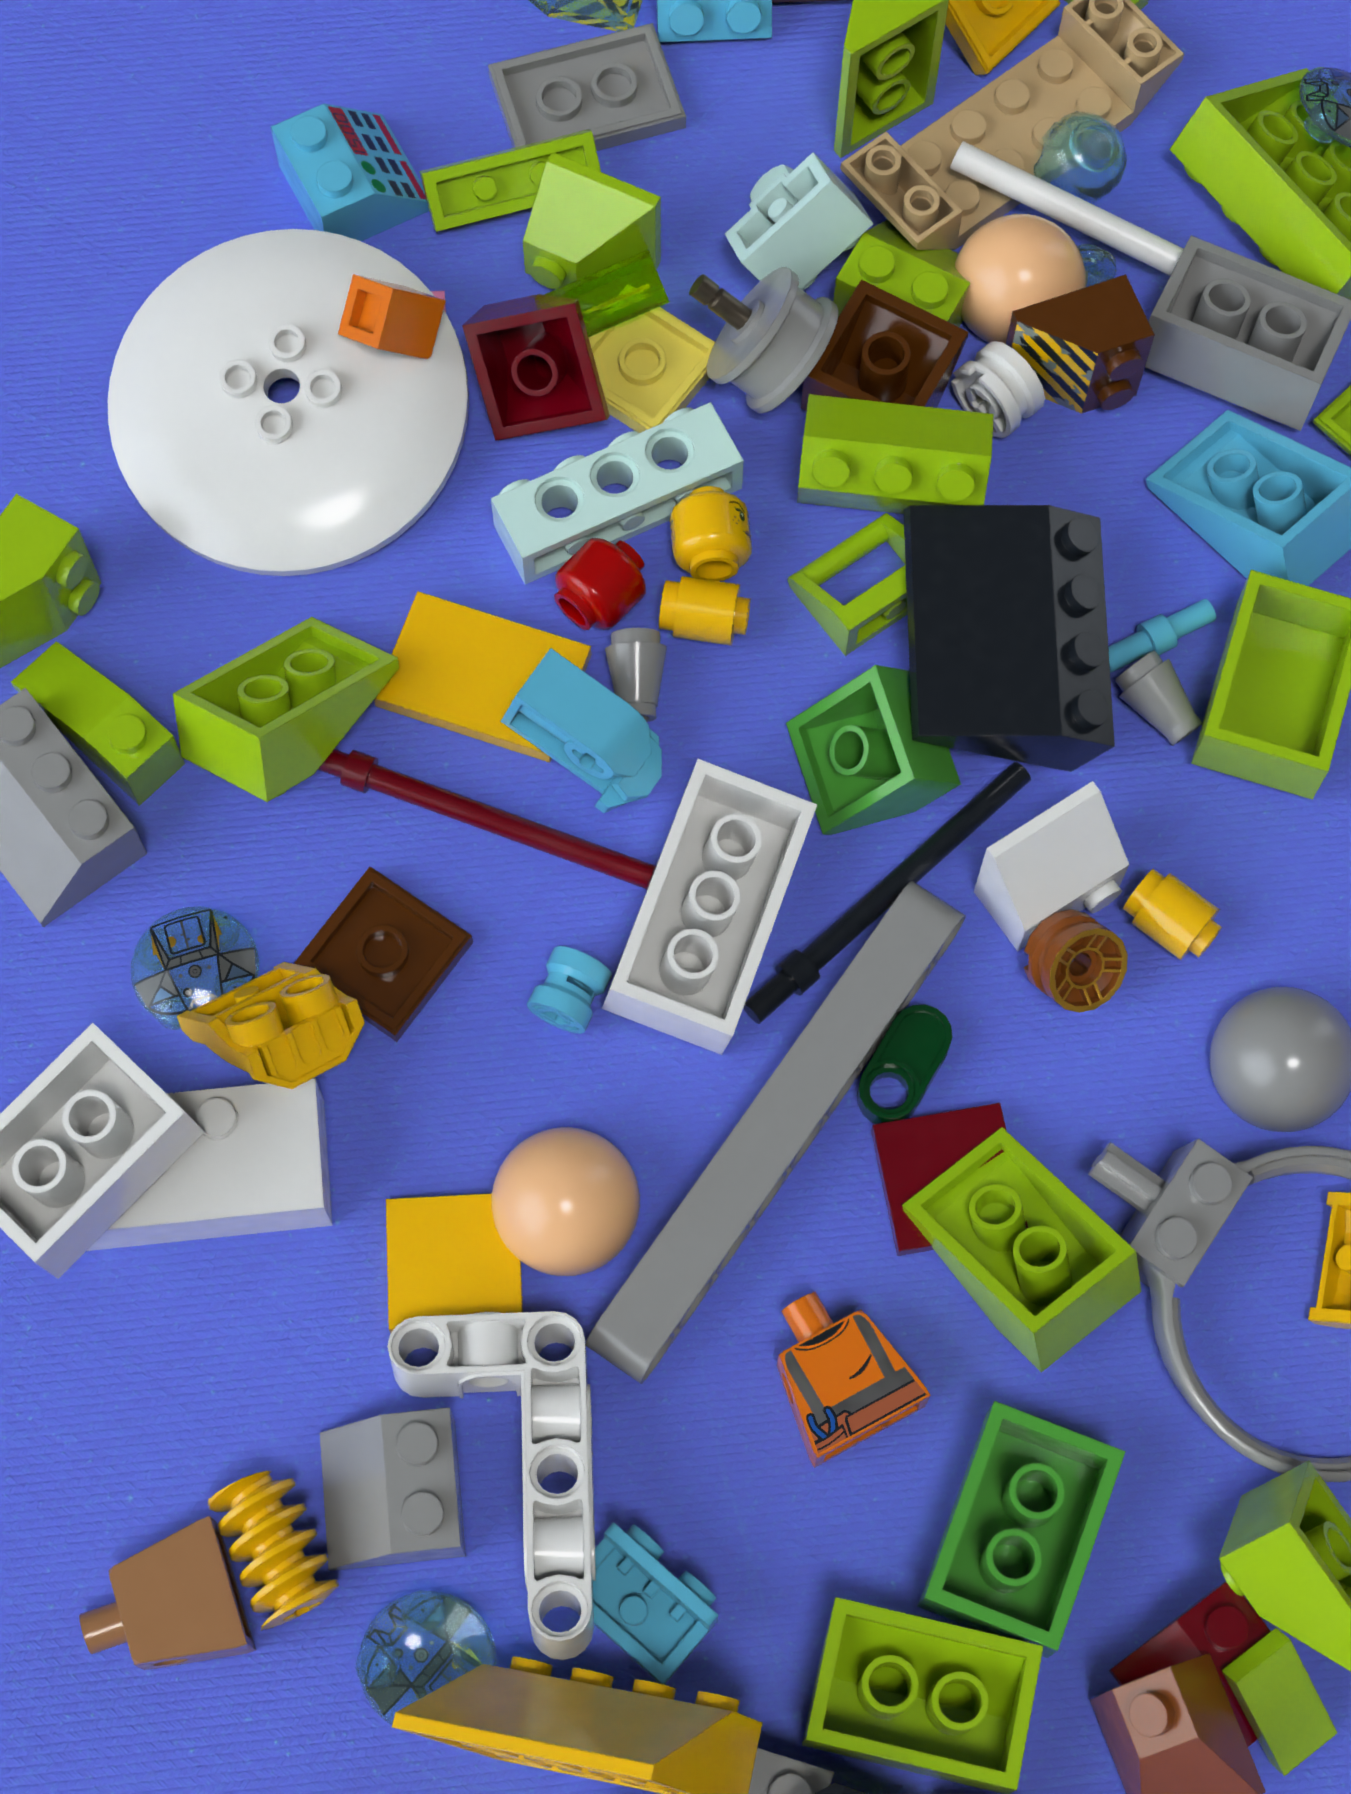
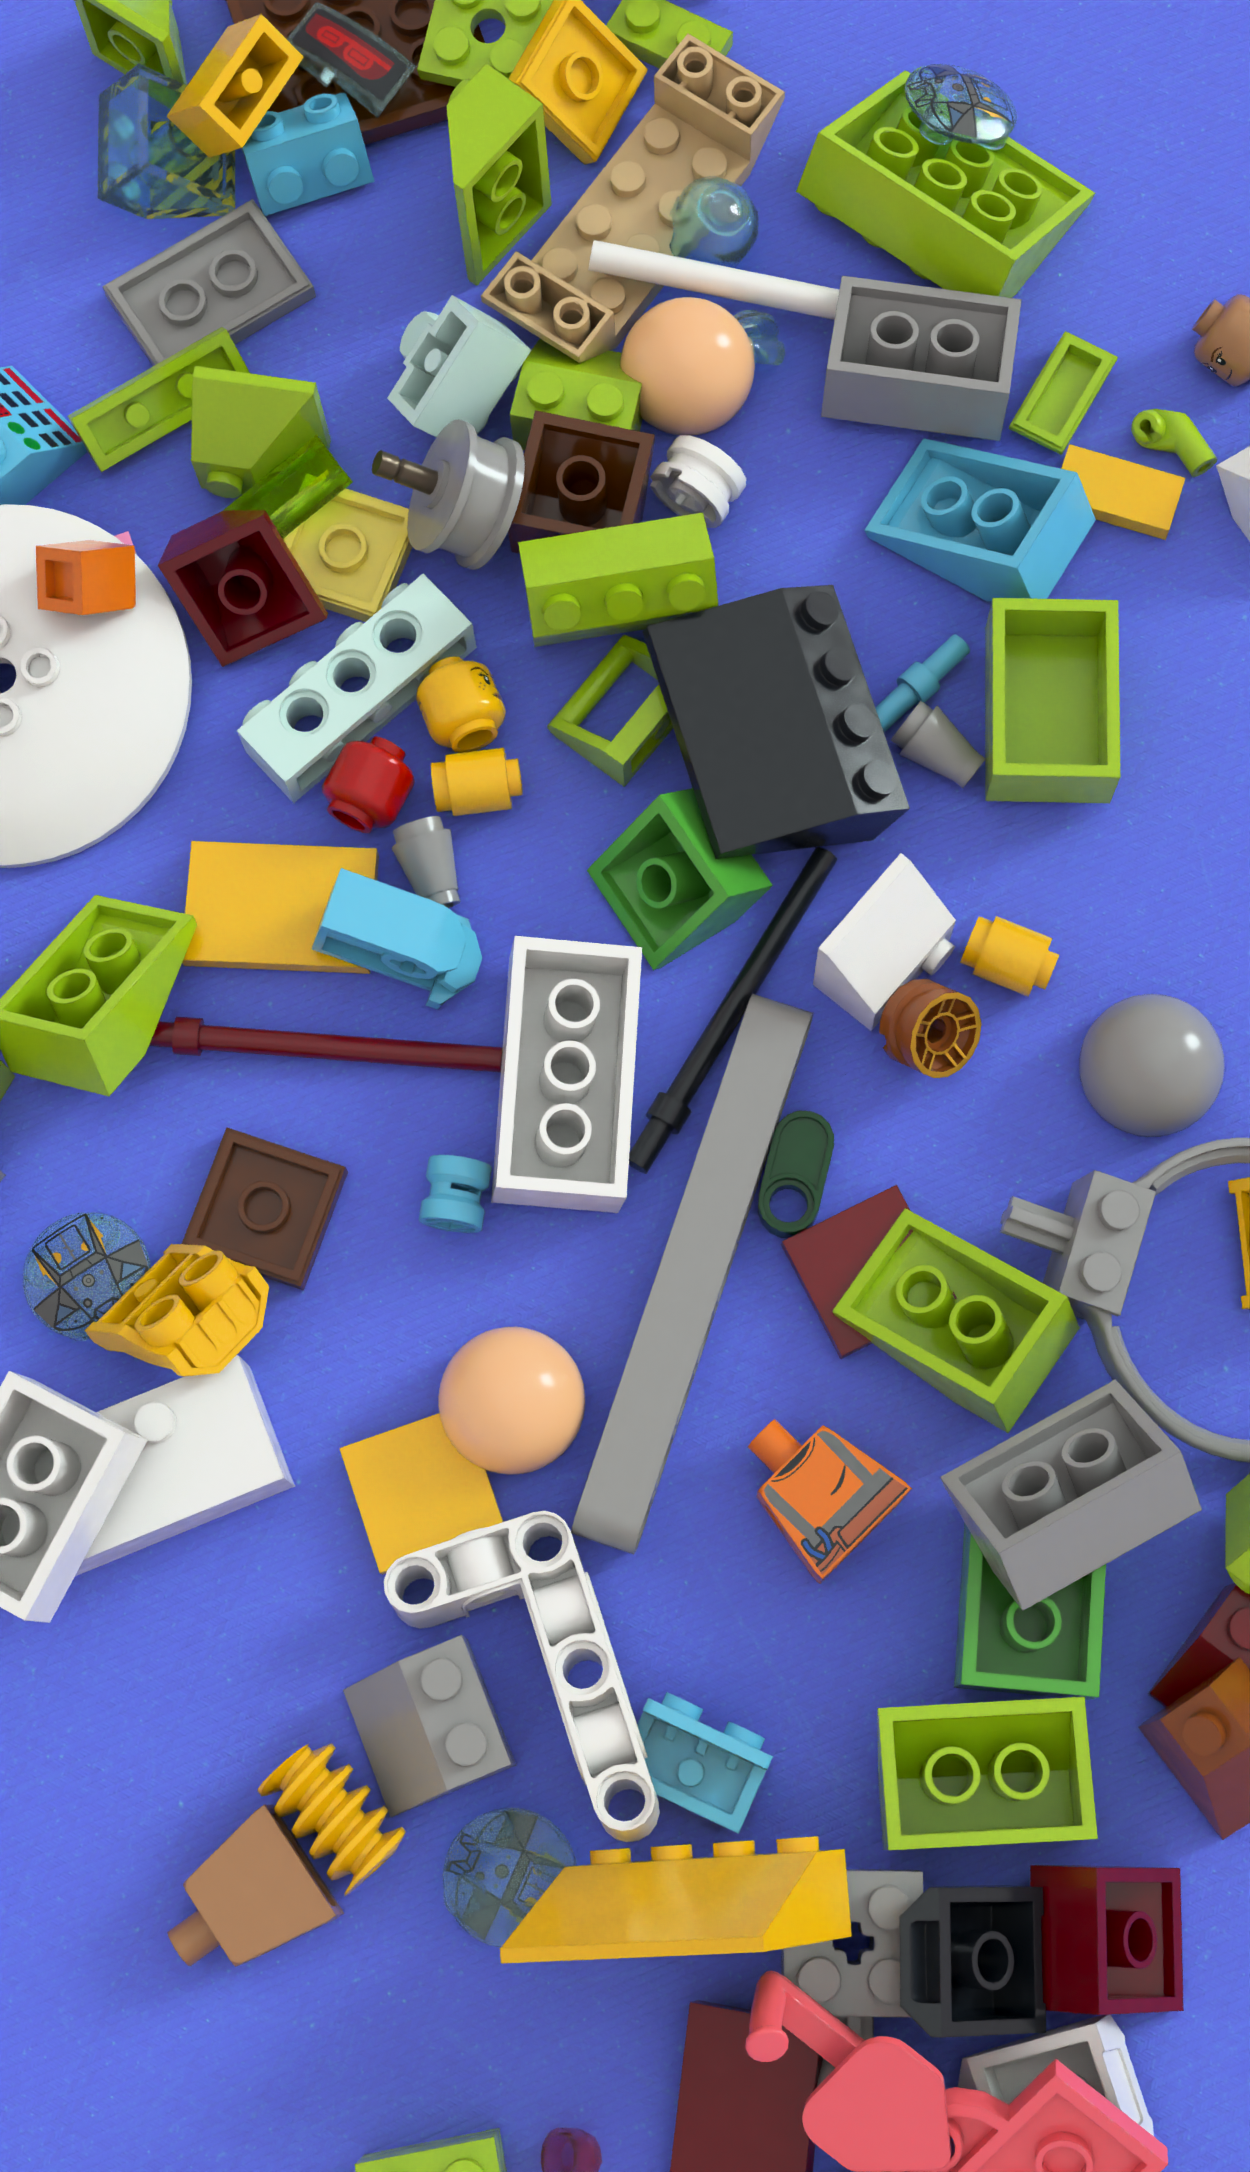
camera: 10 degrees left, 5 degrees up
(1086, 345) = (771, 414): reddish brown slope -> none
(1087, 1441) = (1072, 1493): none -> light grey slope

